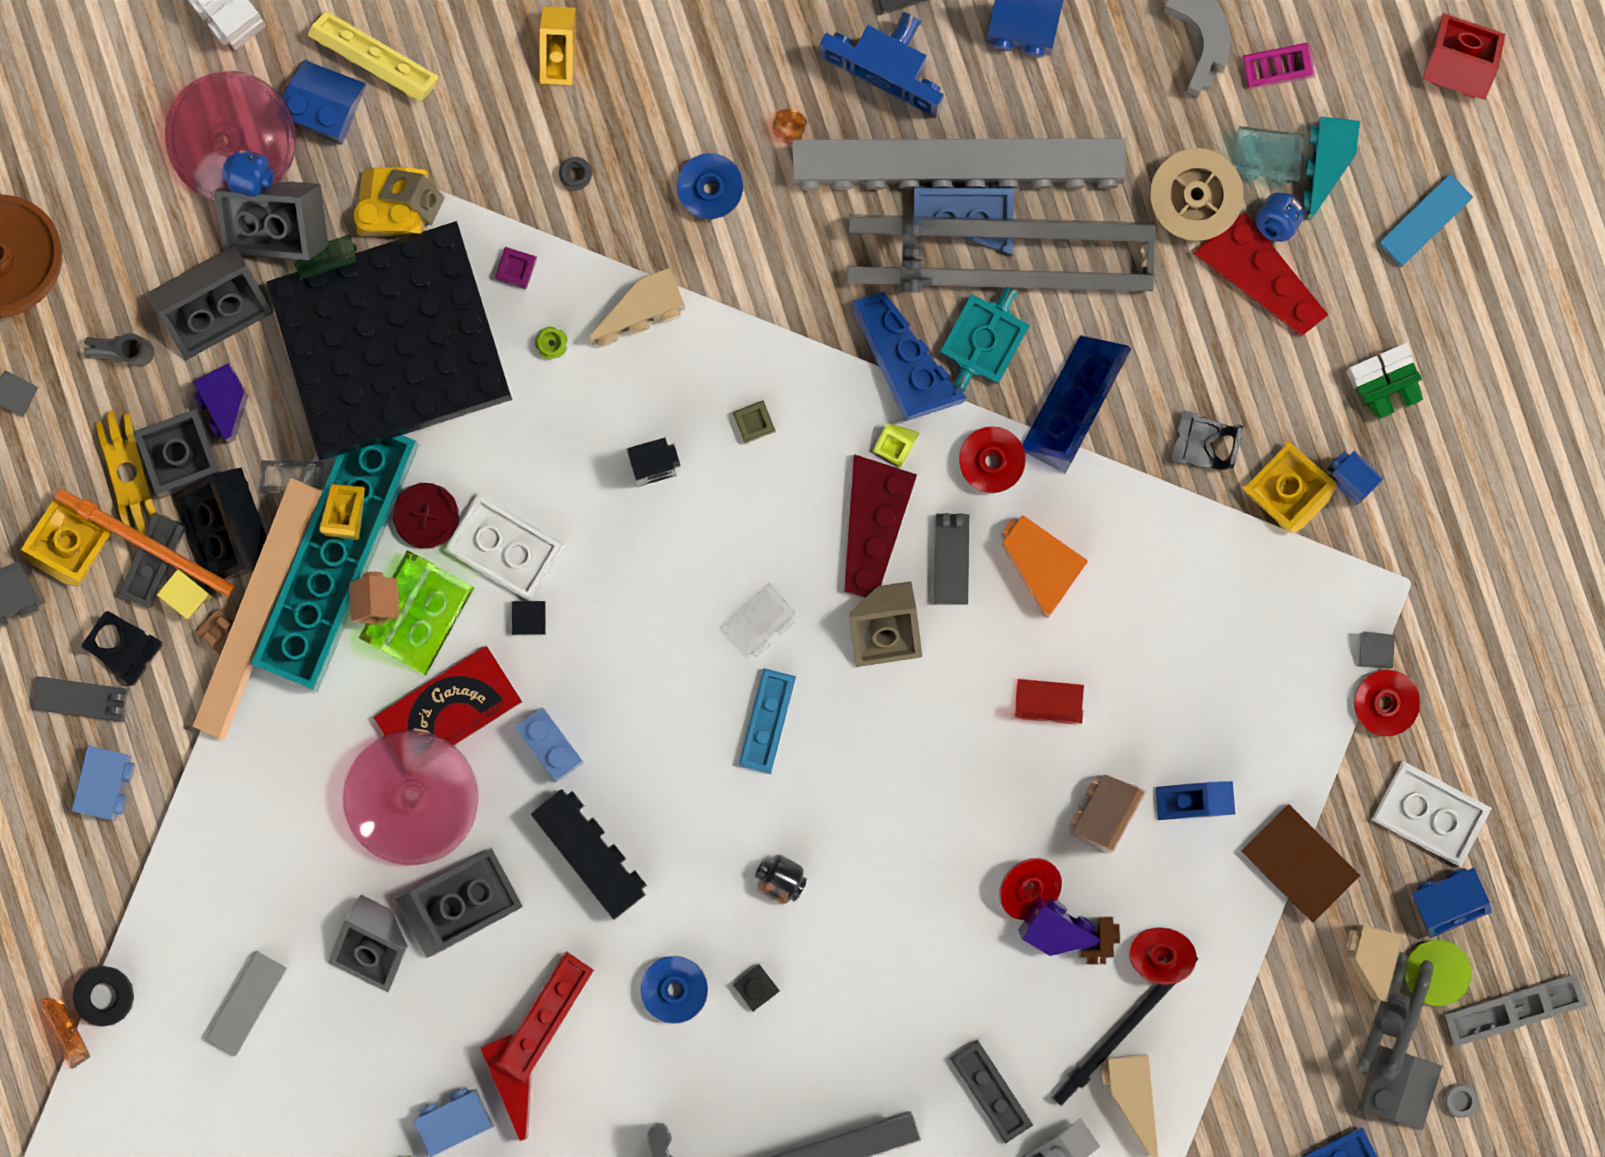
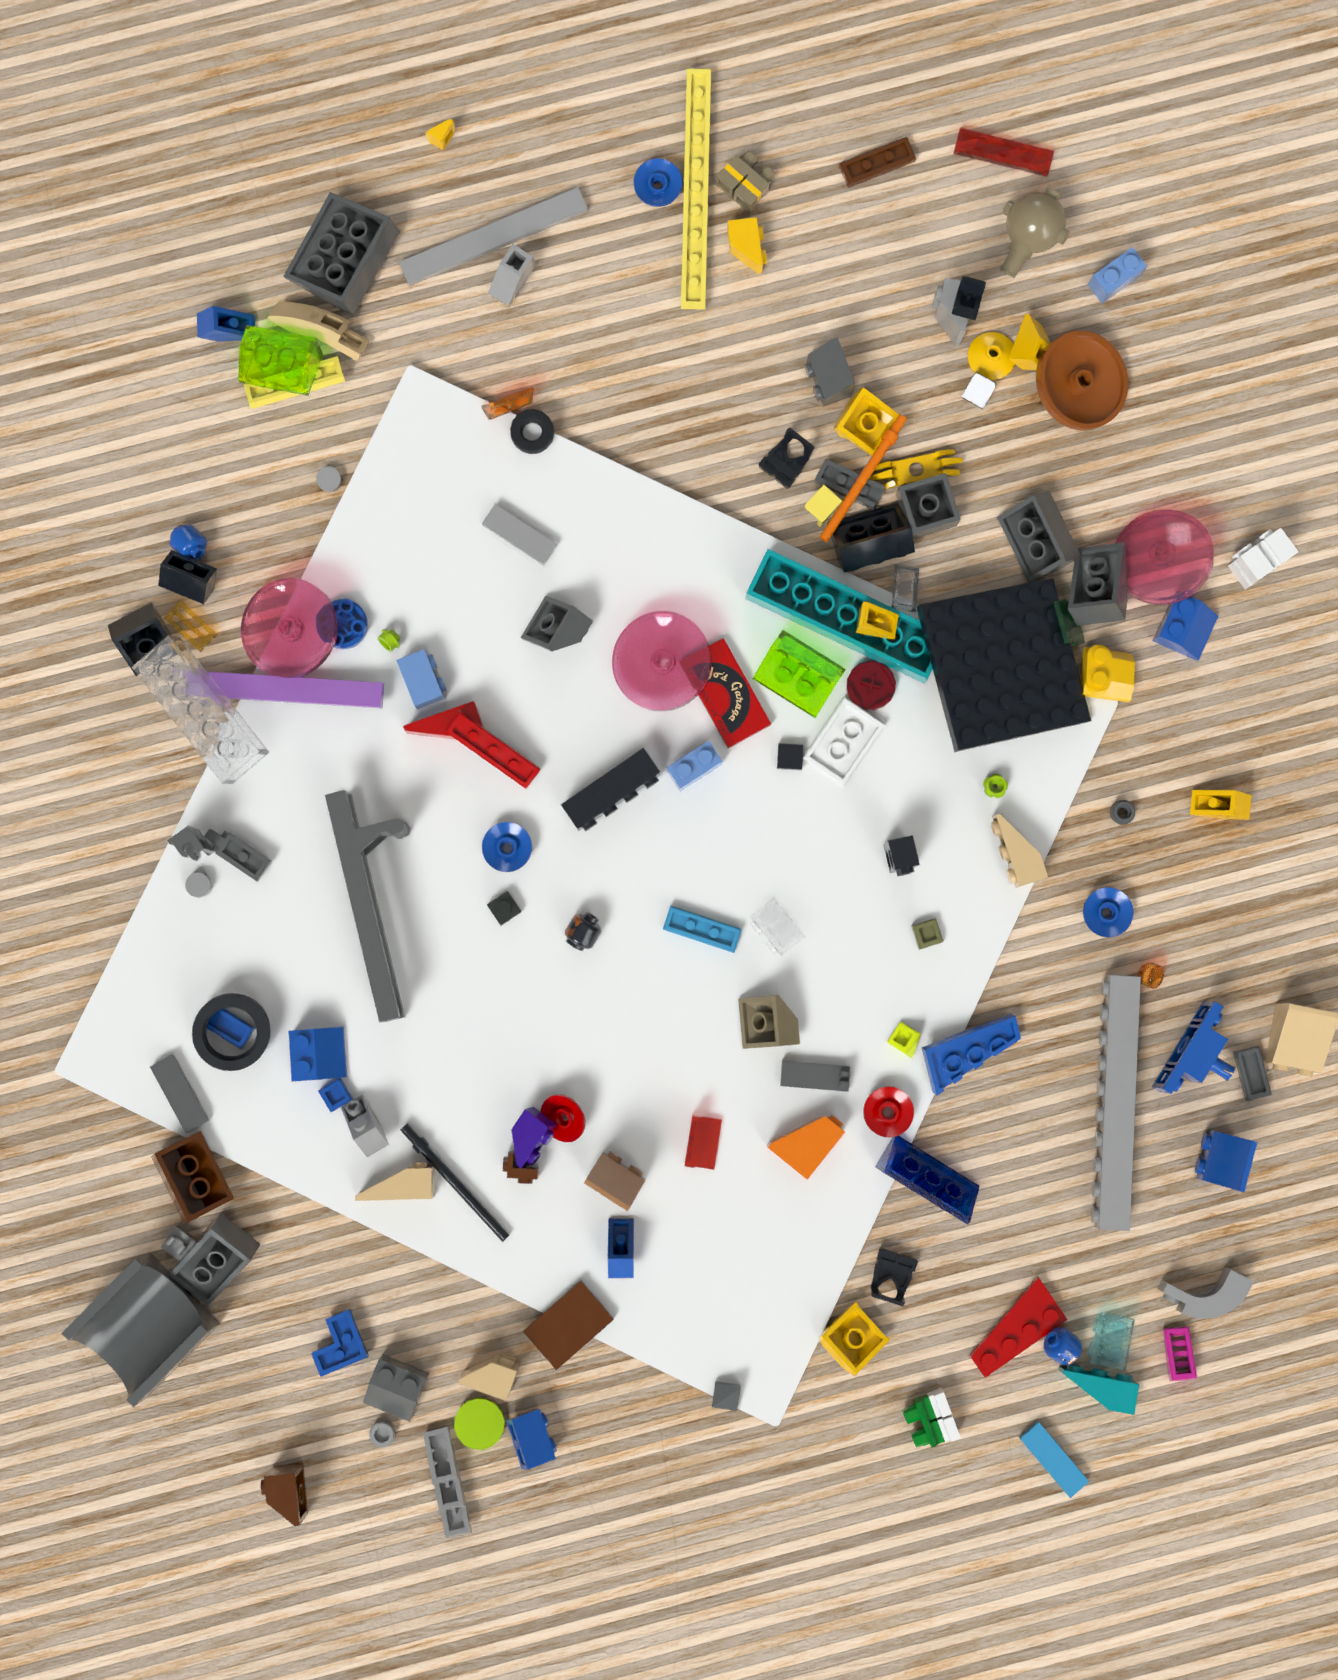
camera: 95 degrees right, 0 degrees up
(80, 699) = (750, 427): dark grey hinge -> none
(103, 783) = (687, 439): medium blue brick -> none
(119, 349) = (1007, 468): dark grey pin -> none
(215, 630) = (793, 530): medium nougat tile -> none
(225, 400) = (966, 542): dark purple slope -> none
(247, 173) = (1136, 566): blue head -> none
(256, 608) = (822, 561): light nougat tile -> none
(373, 56) = (1219, 666): light yellow plate -> none
(374, 599) = (810, 641): nougat brick -> none
(418, 194) = (1113, 692): dark tan bracket -> none
(459, 903) = (581, 692): dark grey slope -> none
(516, 267) = (1053, 763): magenta tile -> none
(876, 514) = (850, 1020): dark red wing -> none
(914, 277) = (1031, 1061): dark grey piece -> none
(968, 203) = (1077, 1107): medium blue wing -> none
(984, 339) = (980, 1112): teal plate -> none
(991, 1091) = (414, 1078): dark grey tile -> none
(1164, 946) = (513, 1218): red dish -> none
(1202, 172) = (1099, 1290): tan piece -> none
(1354, 476) = (859, 1389): blue brick -> none
(1397, 1019) = (444, 1390): dark grey piece -> none
(1402, 707) = (684, 1412): red dish -> none
(1431, 814) = (599, 1428): white tile -> none
(1464, 57) = (1179, 1500): red slope -> none

